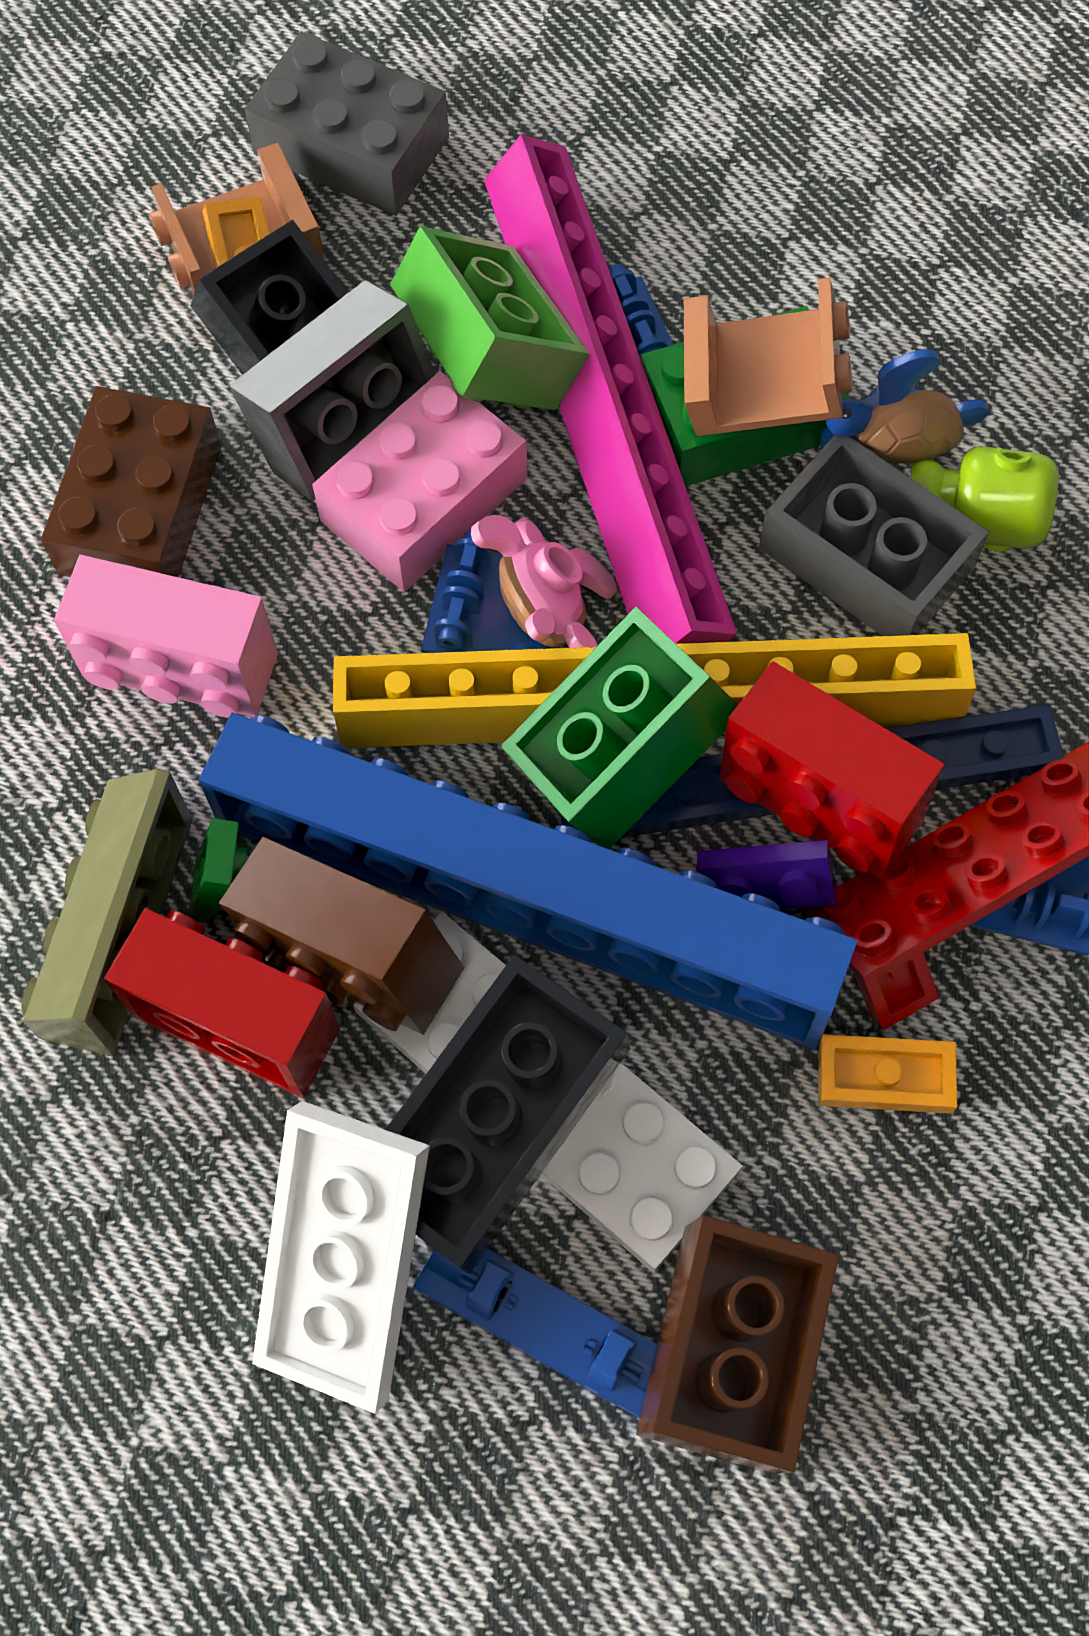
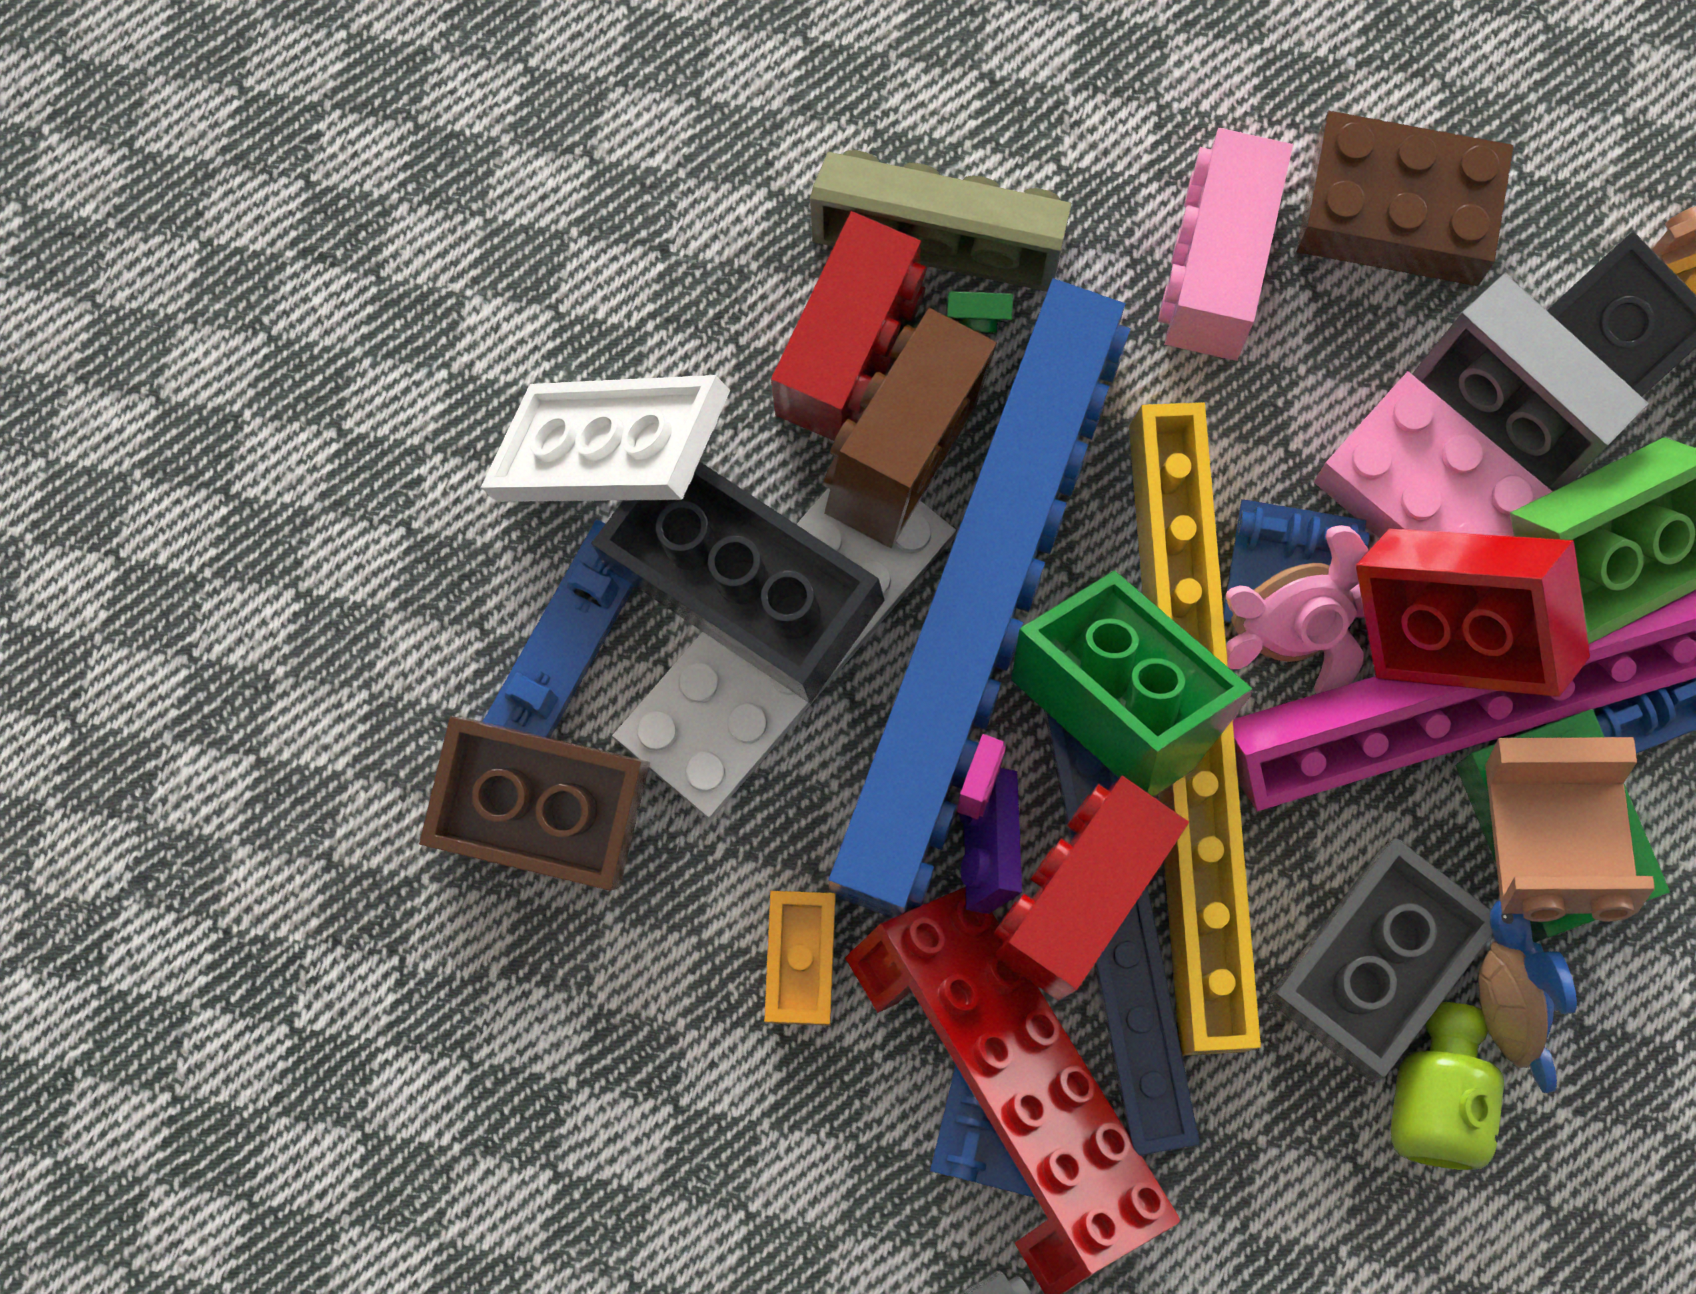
camera: 90 degrees right, 10 degrees up
(556, 428) = (1474, 610): none -> red brick
(726, 868) = (981, 777): none -> dark pink tile

